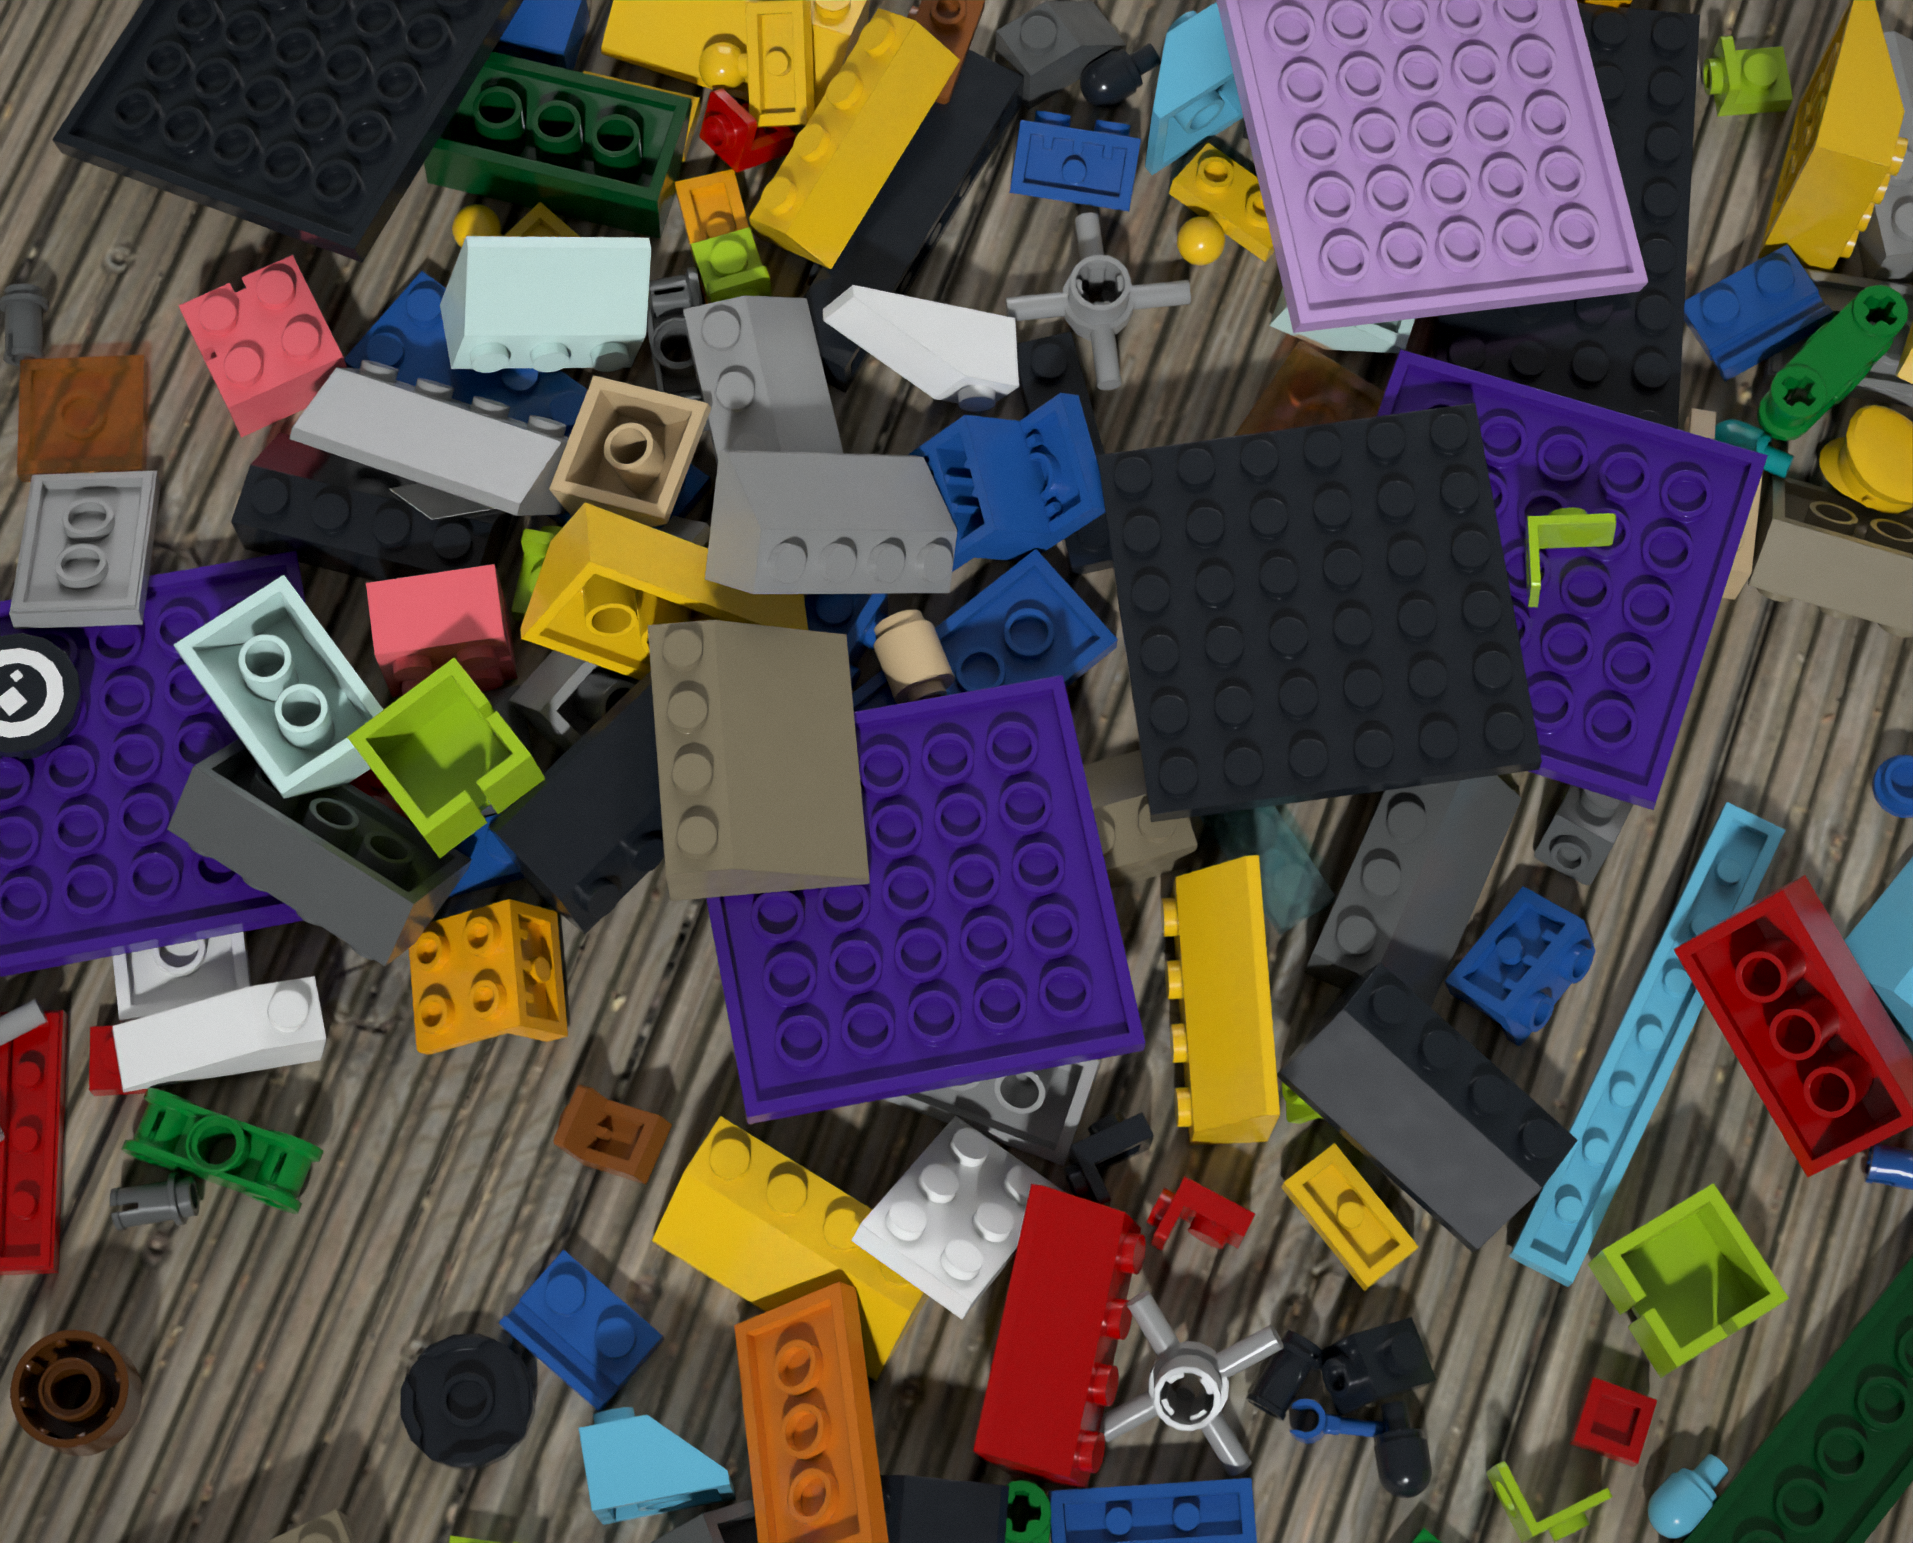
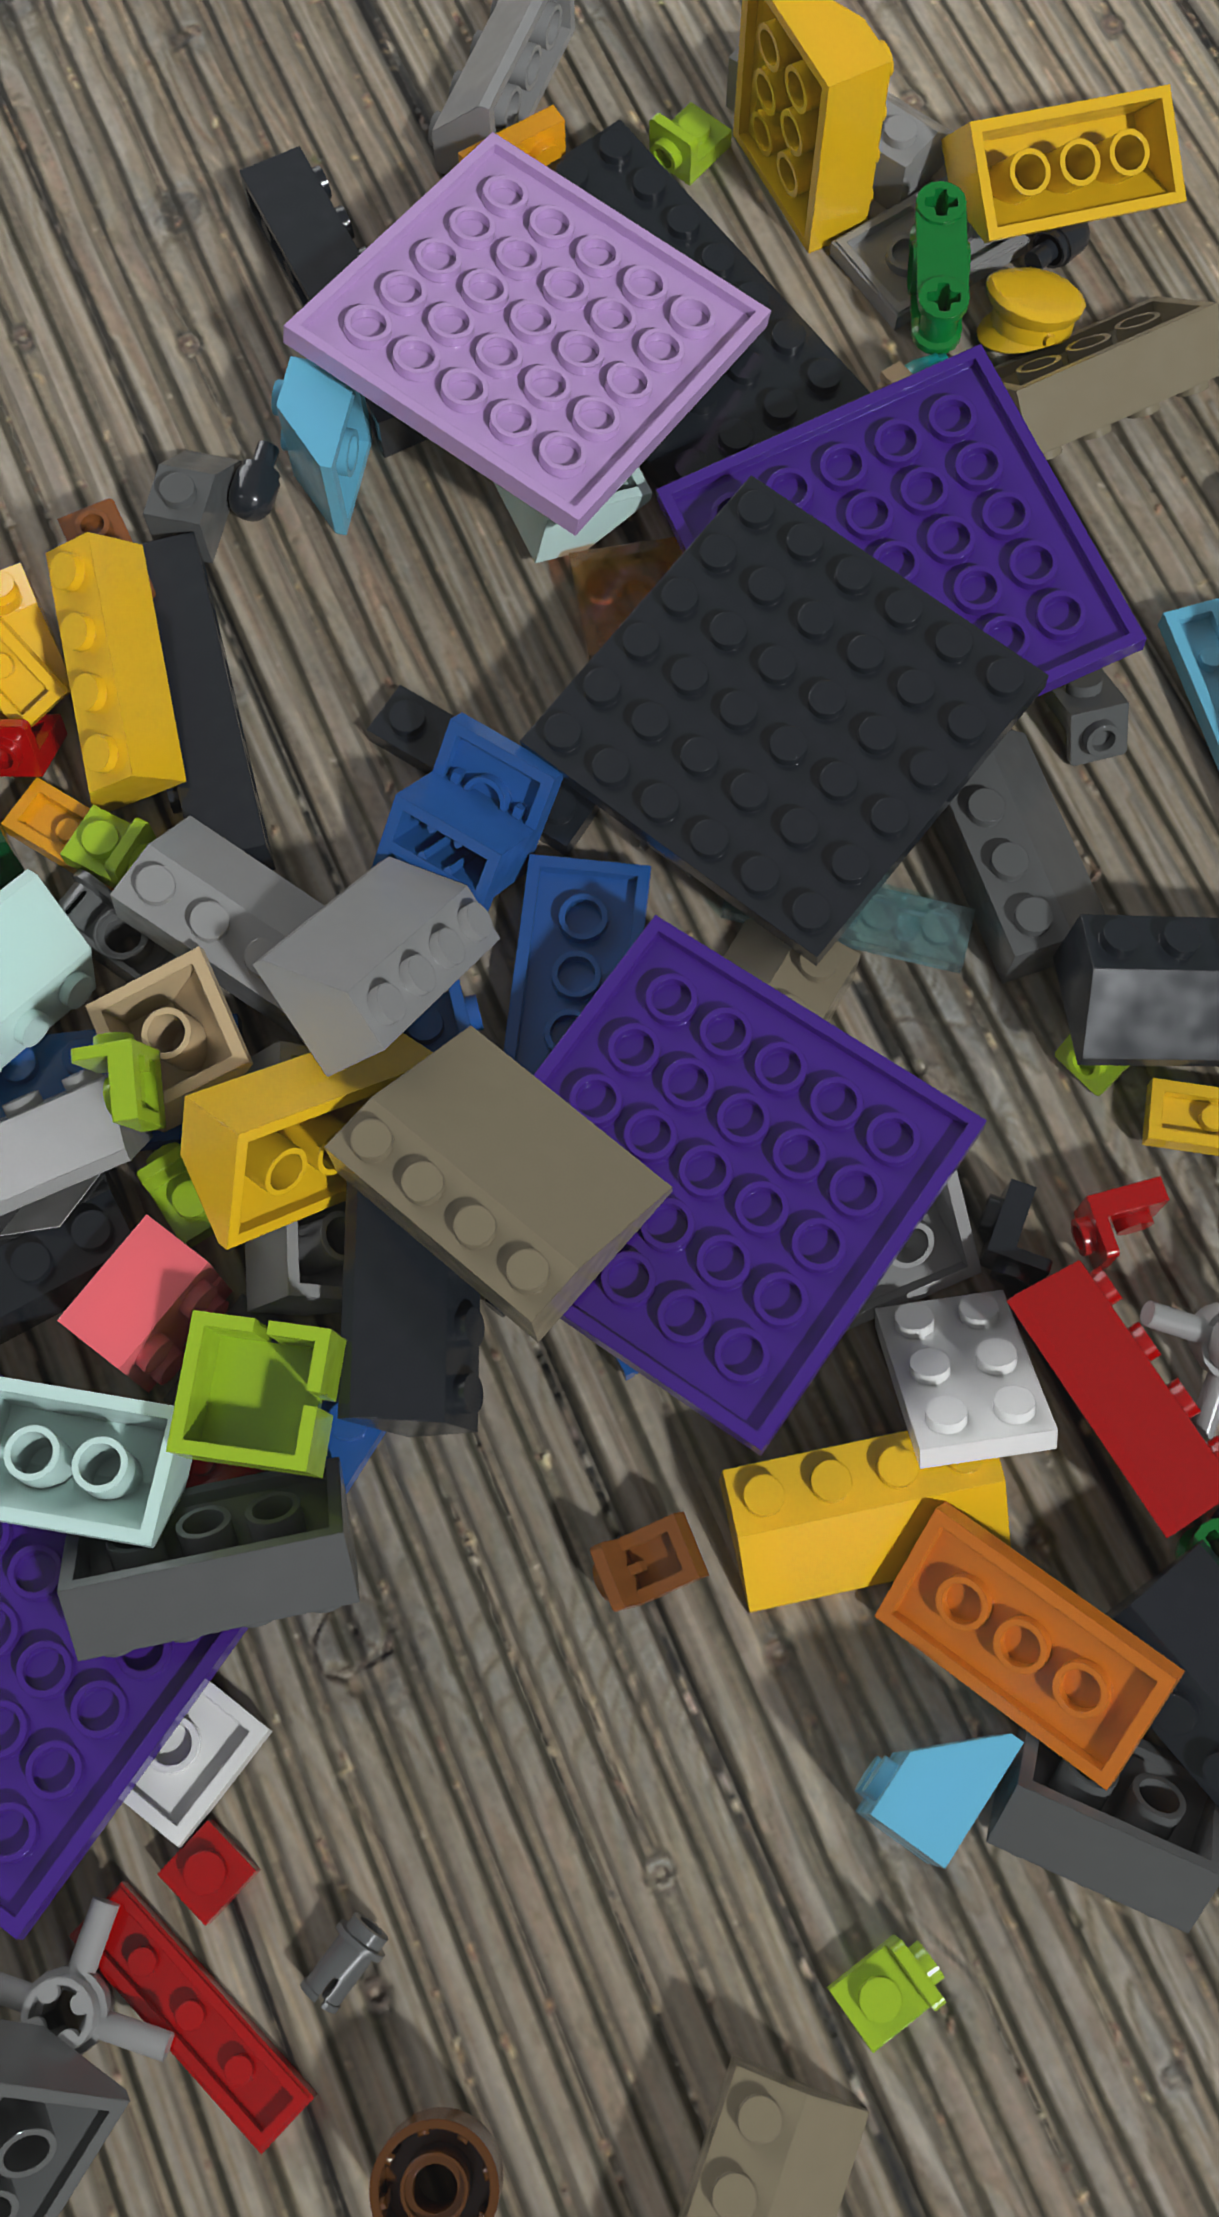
camera: 40 degrees left, 0 degrees up
(223, 1036) = (273, 1781): white slope -> none
(264, 1164) = (315, 1888): green piece -> none
(467, 1401) = (736, 1872): black tile -> none
(488, 977) = (435, 1536): light orange bracket -> none
(571, 460) = (134, 1081): none -> lime bracket
(581, 1331) = (767, 1732): blue plate -> none
(912, 657) = (525, 1006): tan brick -> none
(934, 345) = (313, 772): white slope -> none
(1074, 162) = (287, 565): blue bracket -> none
(1102, 319) = (412, 649): light grey bar -> none
(1223, 1004) = (987, 1047): yellow slope -> none
(1228, 204) = (426, 508): yellow plate -> none
(1523, 964) = (1144, 840): blue bracket -> none
(1562, 530) = (898, 509): lime bracket -> none
(1756, 312) = (852, 281): blue plate -> none

